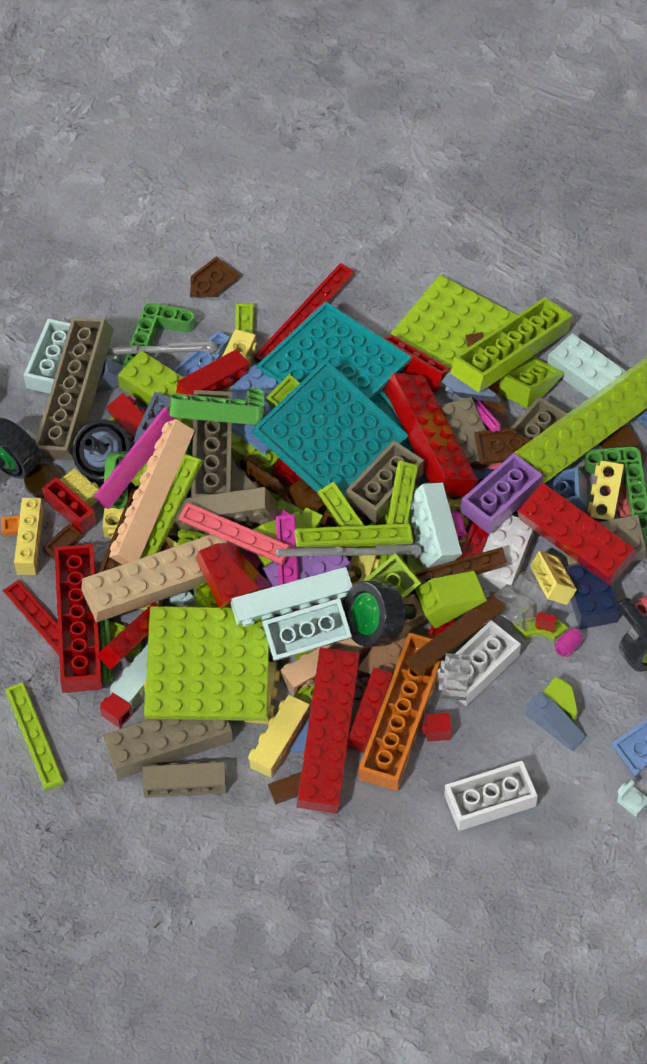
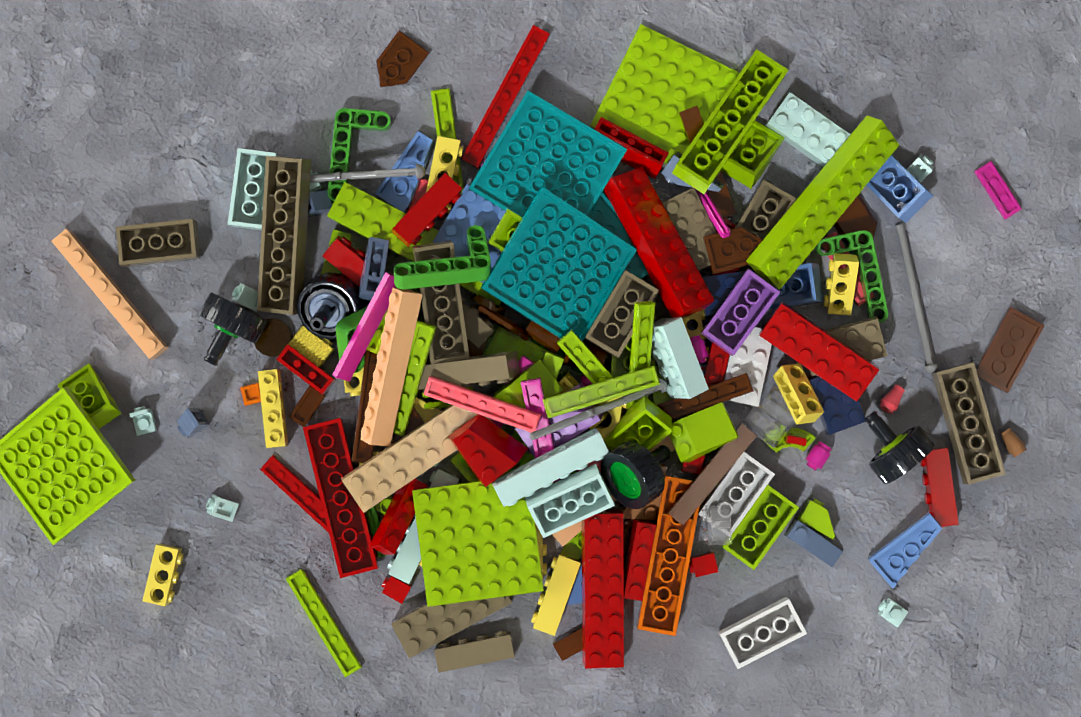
camera: 10 degrees left, 30 degrees up
(499, 696) = (761, 527): none -> lime brick

